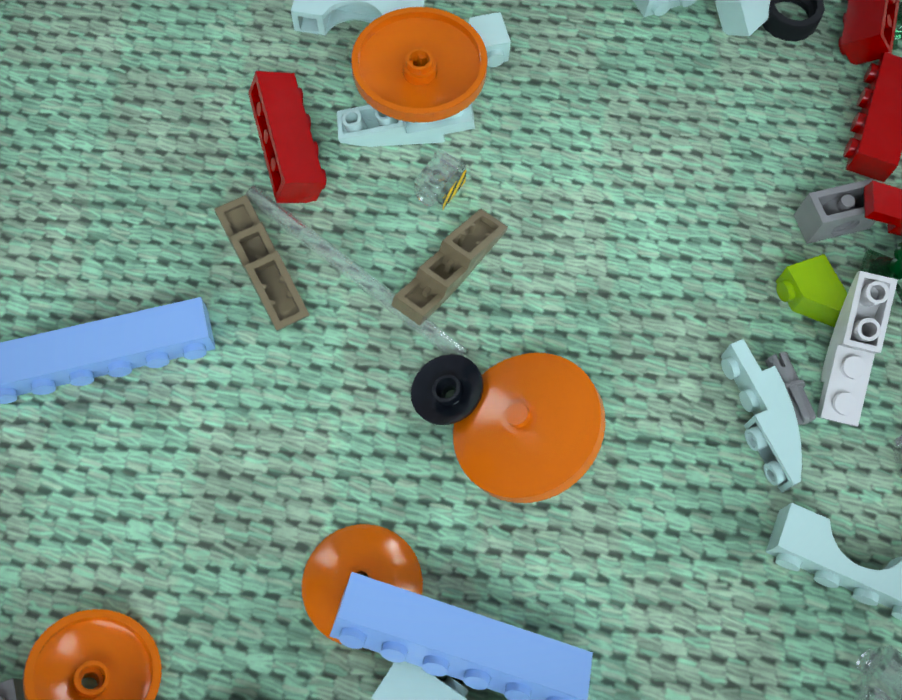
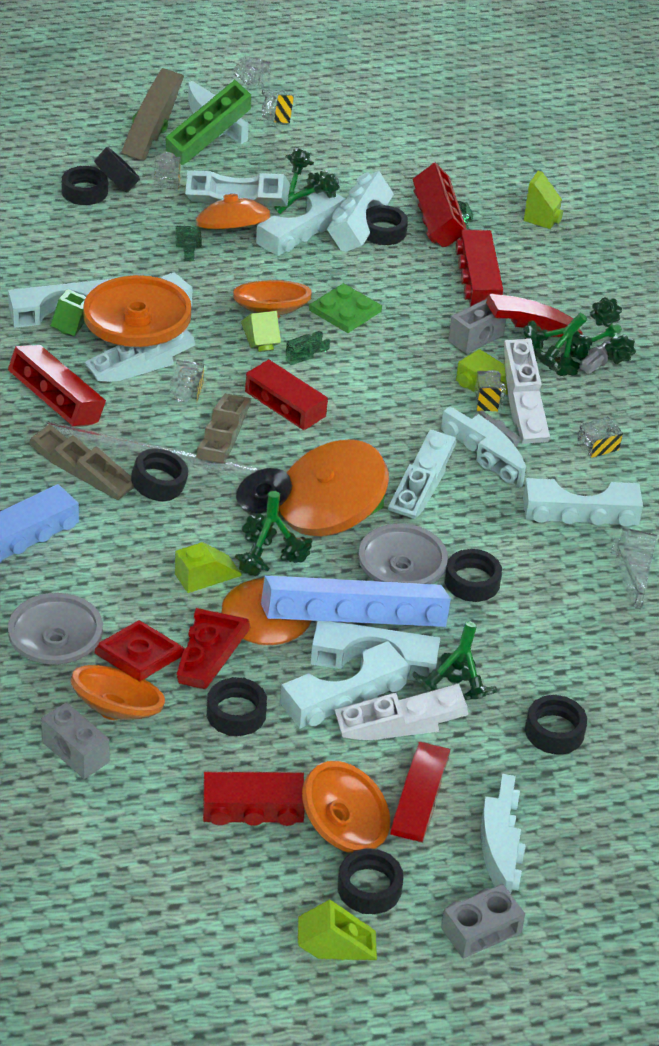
camera: 25 degrees left, 25 degrees down
(52, 526) = (55, 628): none -> light grey dish
(169, 597) = (139, 650): none -> red tile
(261, 624) = (209, 646): none -> red wing
(317, 488) = (203, 566): none -> lime slope
(340, 290) = (156, 488): none -> black tyre
(347, 29) = (69, 313): none -> bright green brick
(411, 454) = (260, 532): none -> dark green plant
(550, 240) = (286, 394): none -> red brick
(566, 131) = (262, 330): none -> lime slope
(586, 559) = (403, 554): none -> light grey dish
(601, 82) = (272, 296): none -> orange dish
(606, 172) = (305, 347): none -> clear green plate
(657, 437) = (423, 476): none -> light aqua slope
(681, 640) = (472, 590): none -> black tyre
(687, 122) = (345, 308): none -> bright green plate
(808, 323) = (489, 391): none -> brick

